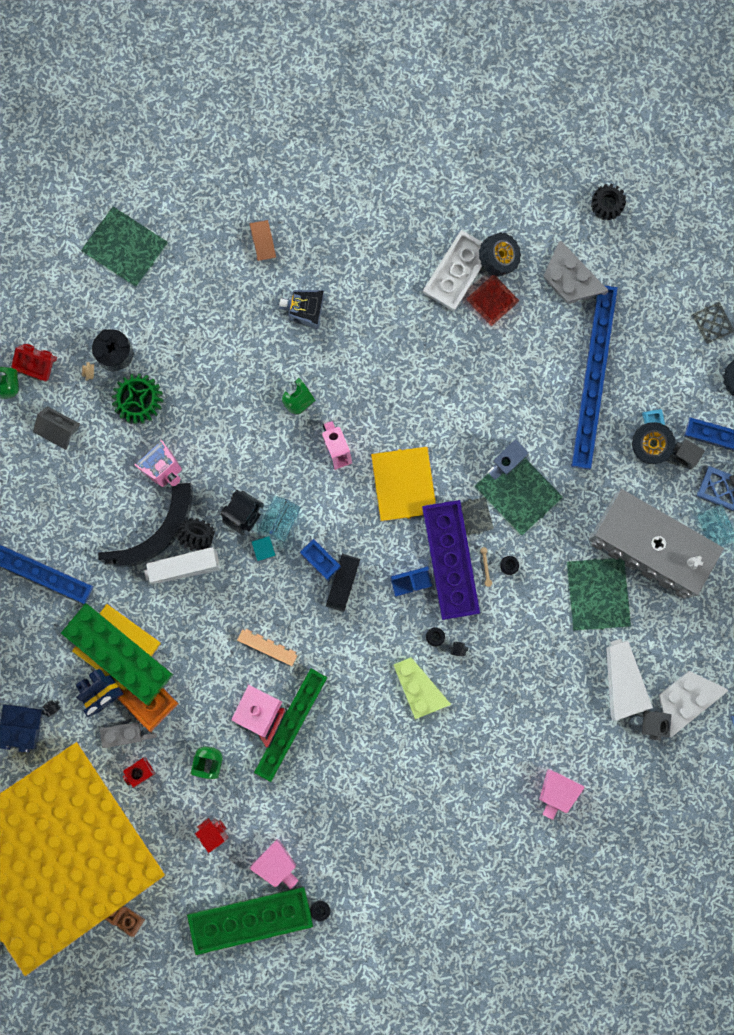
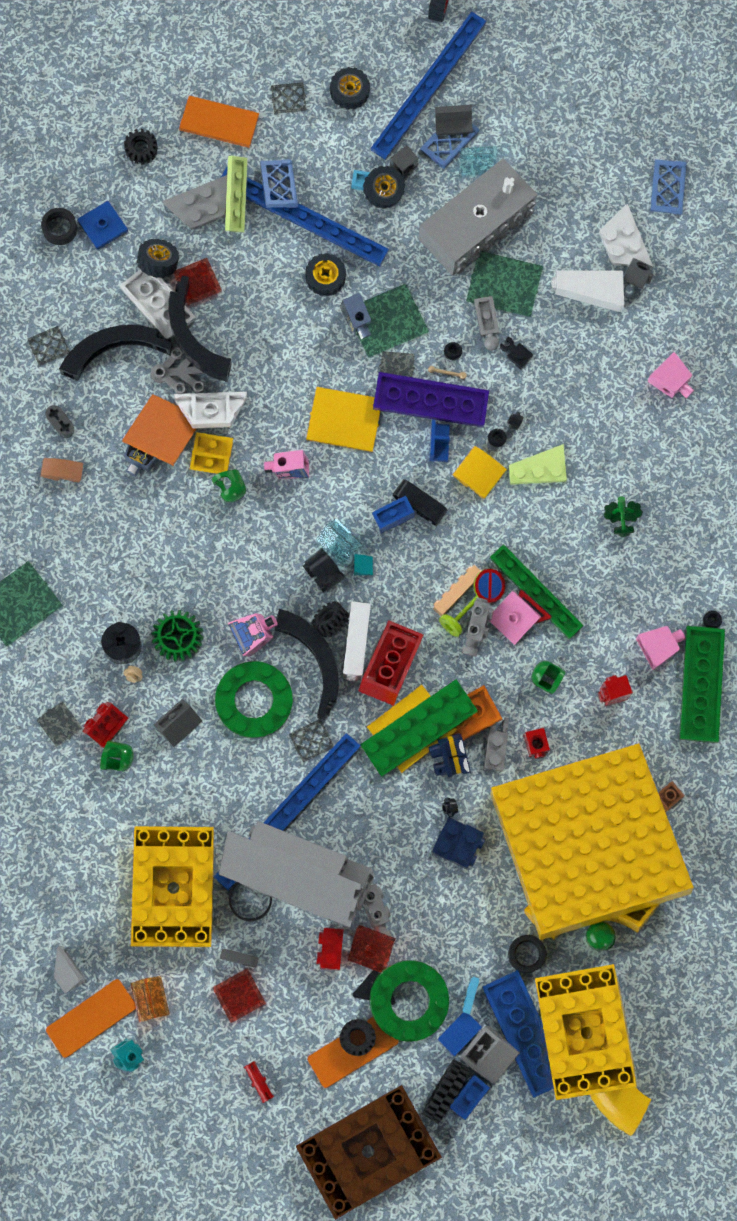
camera: 75 degrees left, 5 degrees down
(23, 322) = (59, 724): none -> clear smoke piece
(68, 556) = (318, 752): none -> clear smoke window
(105, 516) = (247, 726): none -> green plate
(175, 606) = (390, 663): none -> red slope
(232, 678) = (479, 622): none -> light grey brick
(279, 676) = (487, 585): none -> piece
(306, 220) = (62, 419): none -> dark grey beam
(326, 370) = (211, 453): none -> yellow slope
(330, 316) = (160, 430): none -> orange piece
(368, 355) = (211, 409): none -> white wing
(370, 178) = (44, 334): none -> clear smoke window
(392, 226) = (107, 339): none -> black arch
(394, 630) = (479, 472): none -> yellow slope
(398, 779) = (621, 513): none -> dark green plant
(399, 318) = (182, 371): none -> light grey plant
(428, 304) = (195, 353): none -> black arch
(500, 142) = (62, 239): none -> black tyre
(517, 195) = (102, 225): none -> blue plate
(529, 631) = (517, 354): none -> black plate
(547, 407) = (325, 264): none -> black wheel
(551, 589) = (487, 321): none -> light grey plate
(591, 304) = (236, 194): none -> yellowish green plate
(599, 349) = (281, 201): none -> medium blue window
(663, 266) = (219, 121): none -> orange tile

